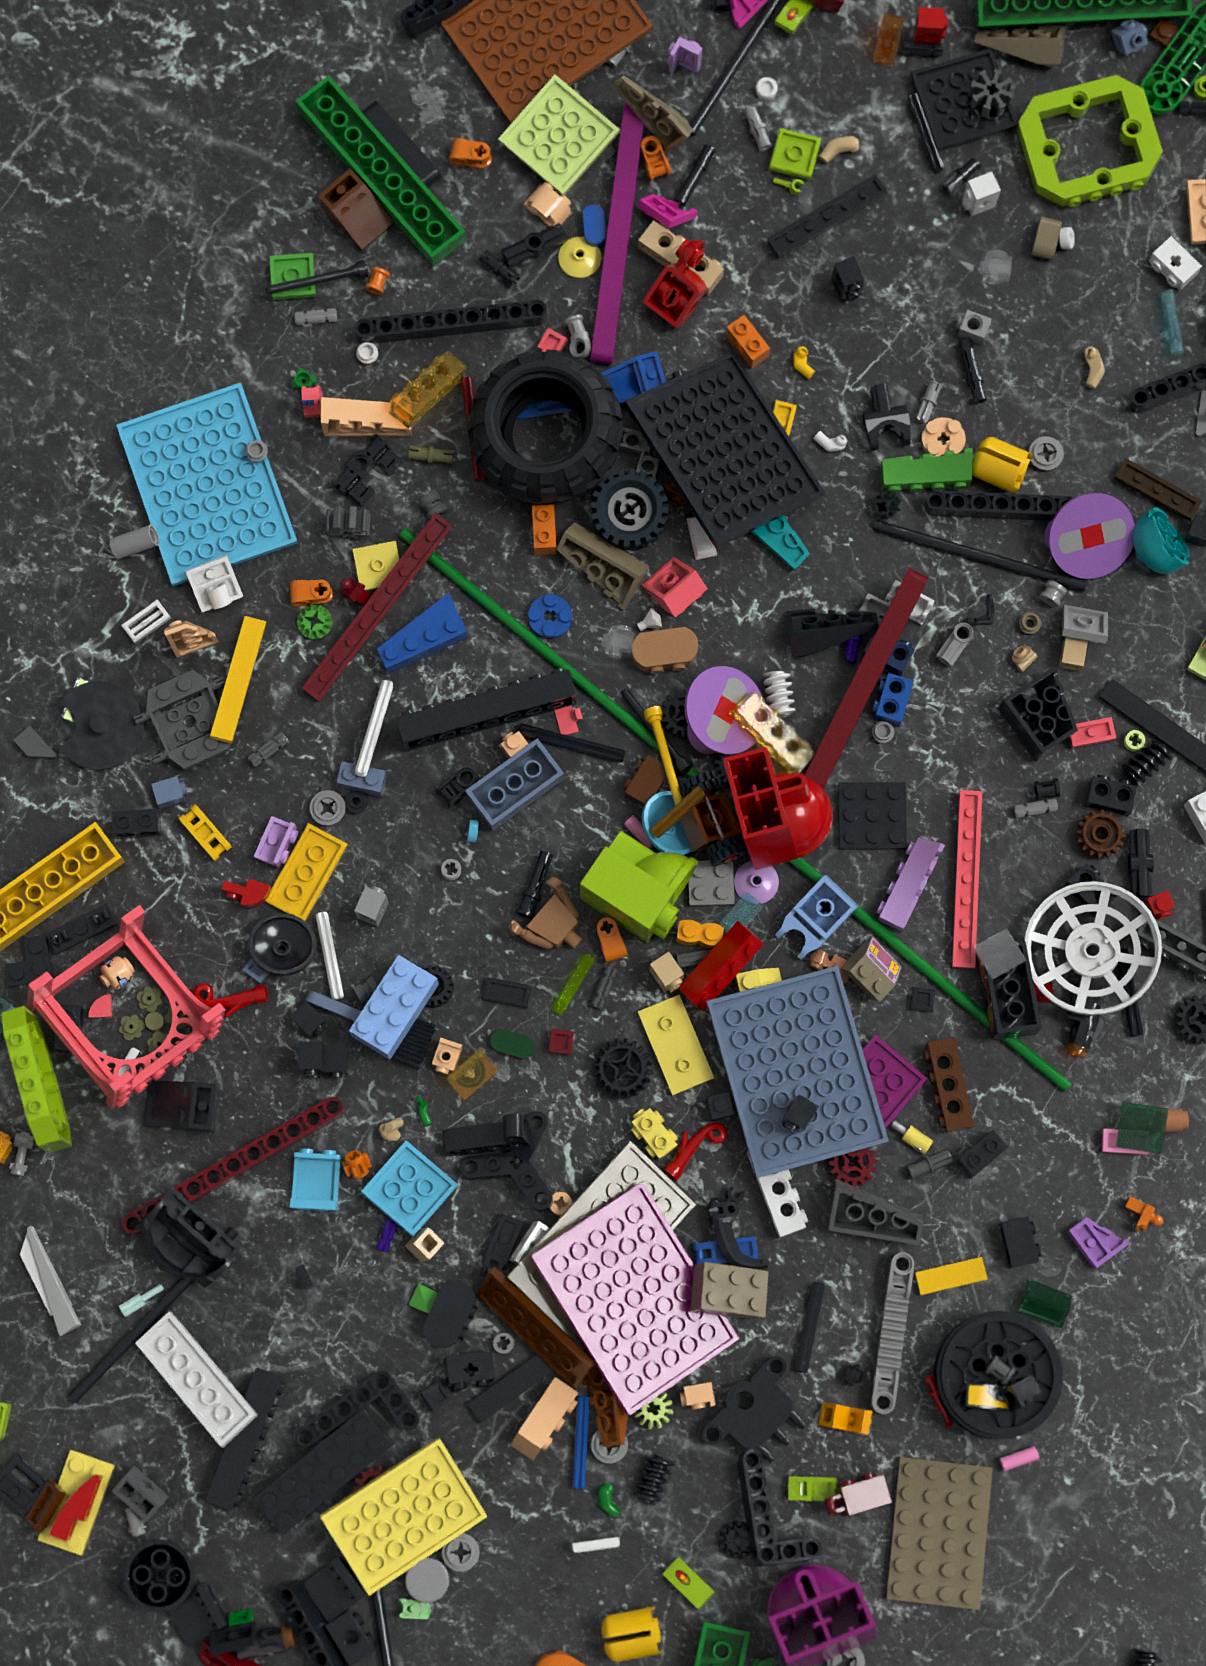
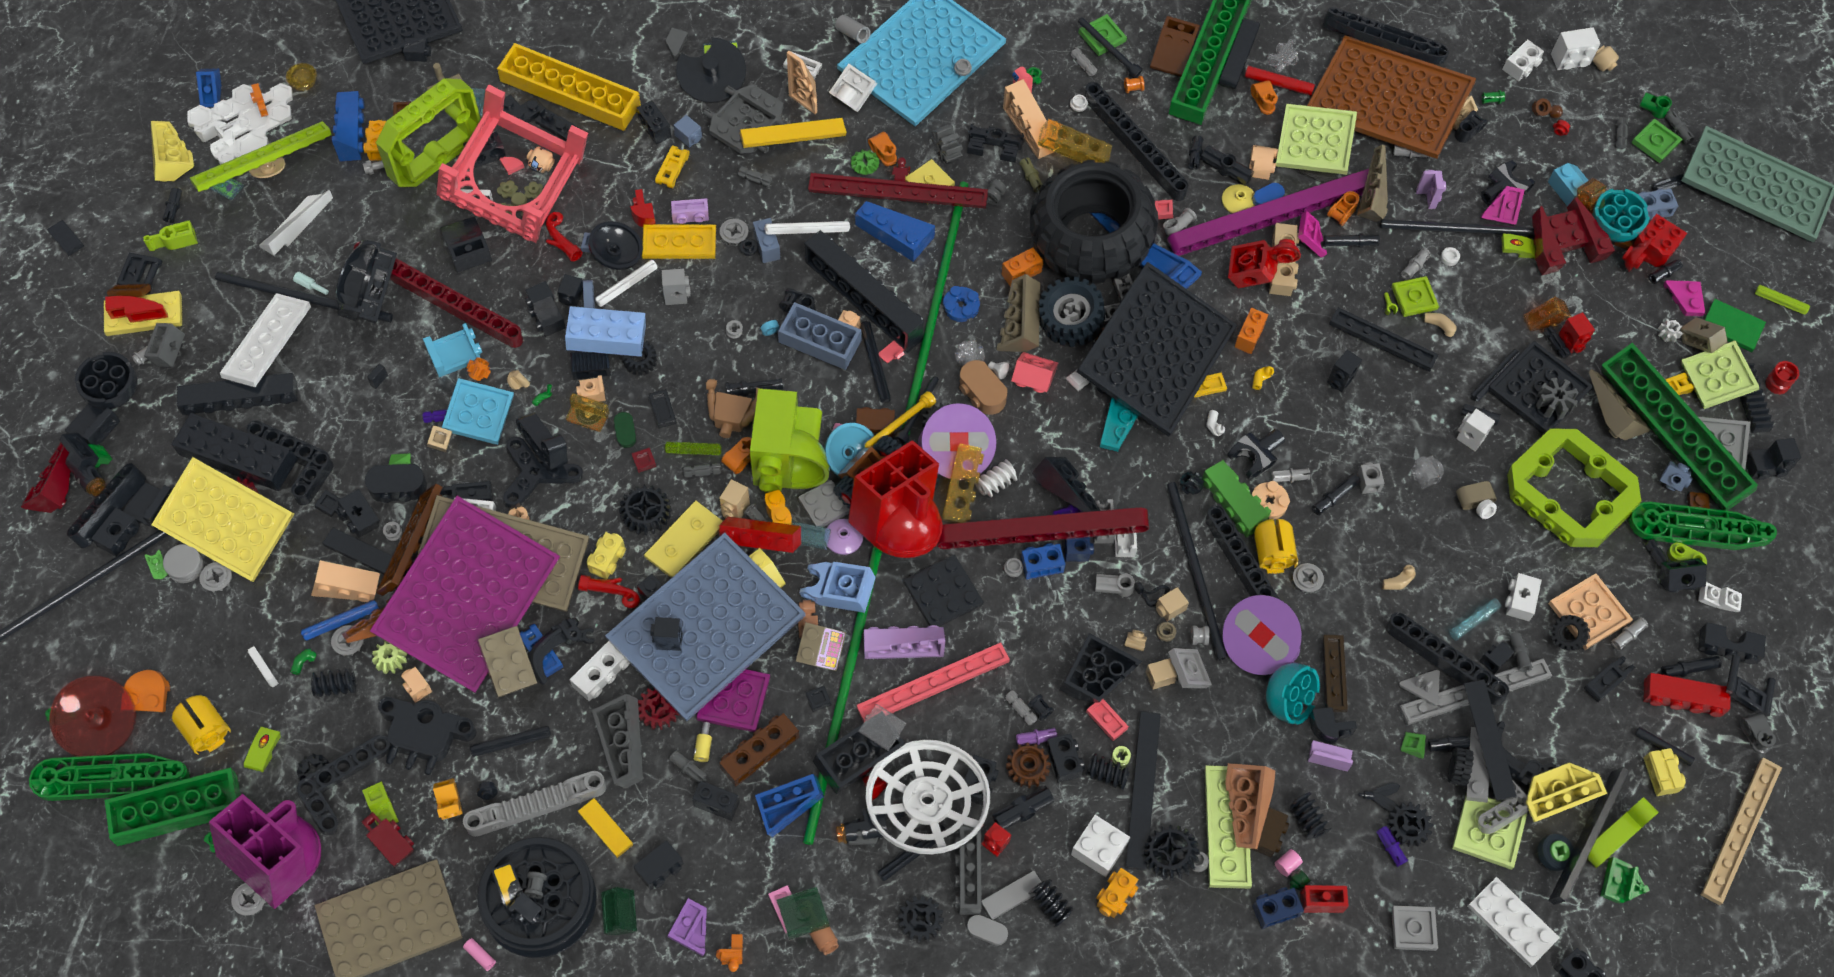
camera: 60 degrees right, 15 degrees down
(457, 125) = (1280, 80): none -> red piece
(678, 812) = (858, 441): pearl gold axle -> none
(1006, 601) = (1171, 604): none -> tan brick
(1022, 1085) = (787, 802): none -> blue wedge
(1074, 810) = (1035, 737): none -> medium lavender axle

